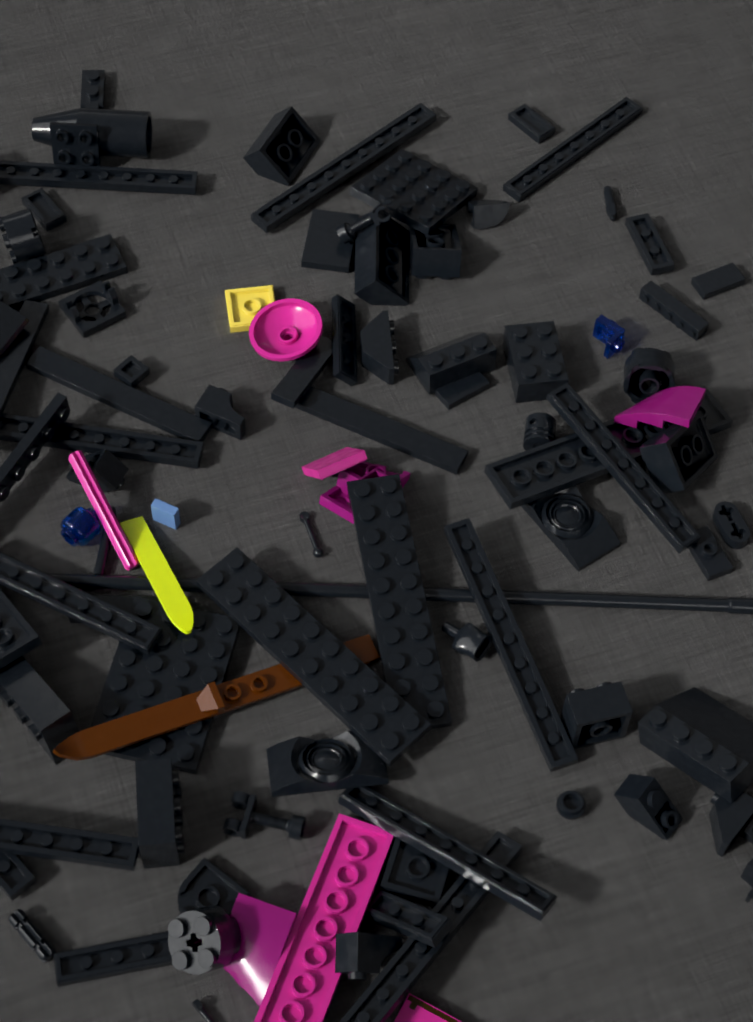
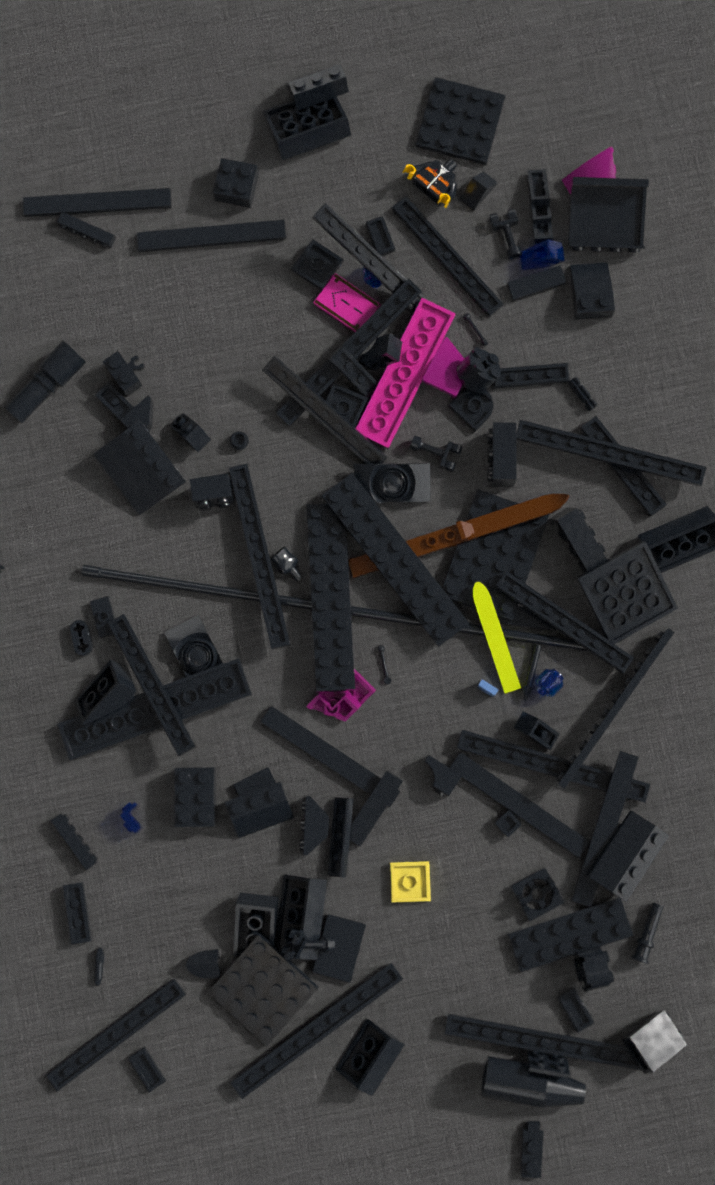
camera: 165 degrees left, 25 degrees up
(103, 510) = (533, 690): dark pink axle -> none
(284, 321) = (398, 849): dark pink dish -> none
(334, 463) = (361, 714): dark pink tile -> none
(539, 433) = (204, 728): black piece -> none
(648, 373) = (111, 768): black brick -> none
(672, 405) = (108, 728): magenta slope -> none
(718, 281) = (30, 869): black tile -> none

